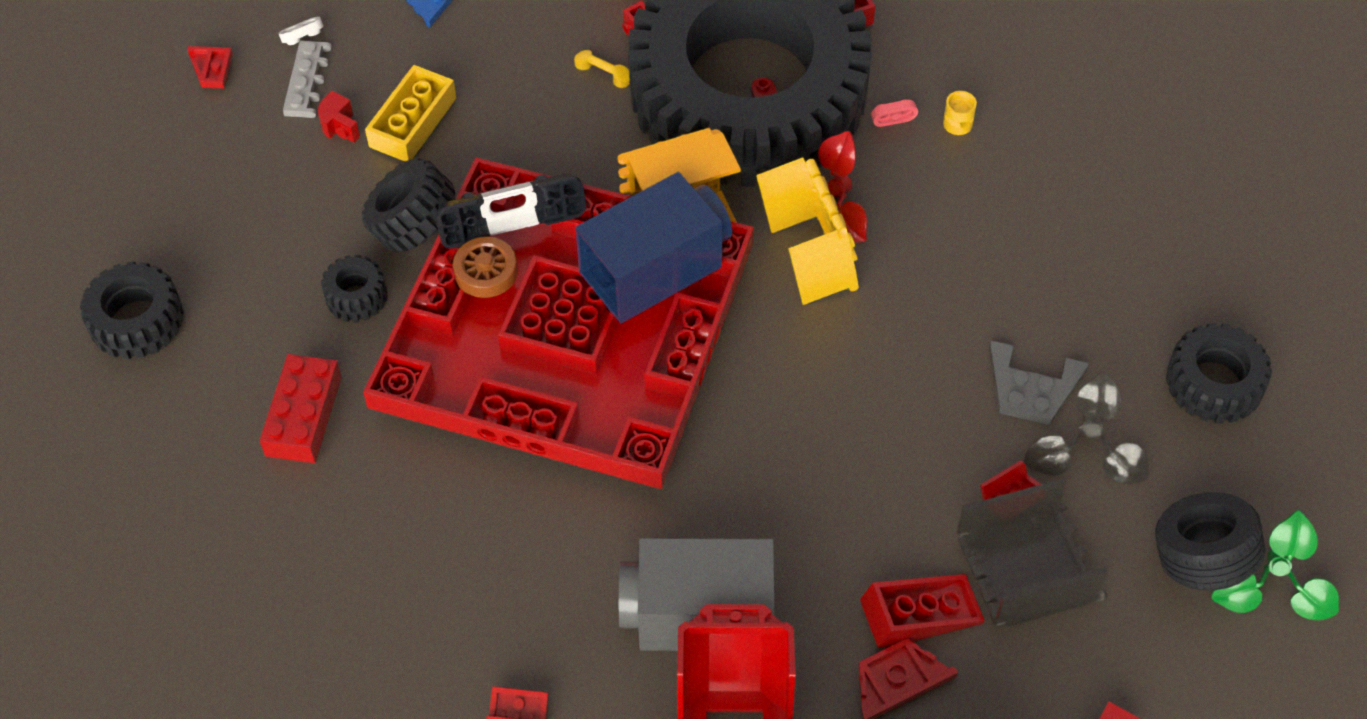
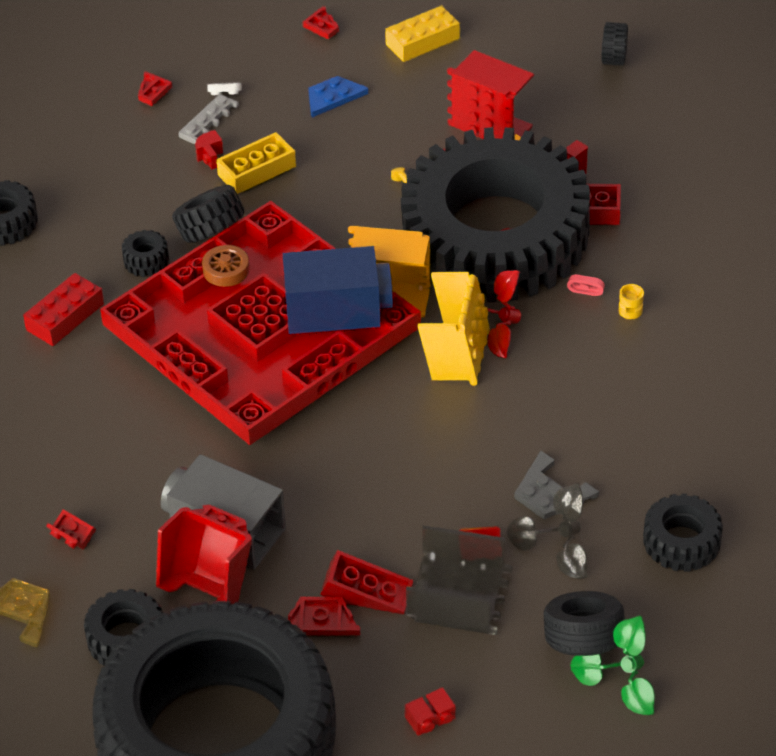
camera: 30 degrees right, 10 degrees down
(547, 202) = (238, 232): black piece -> none

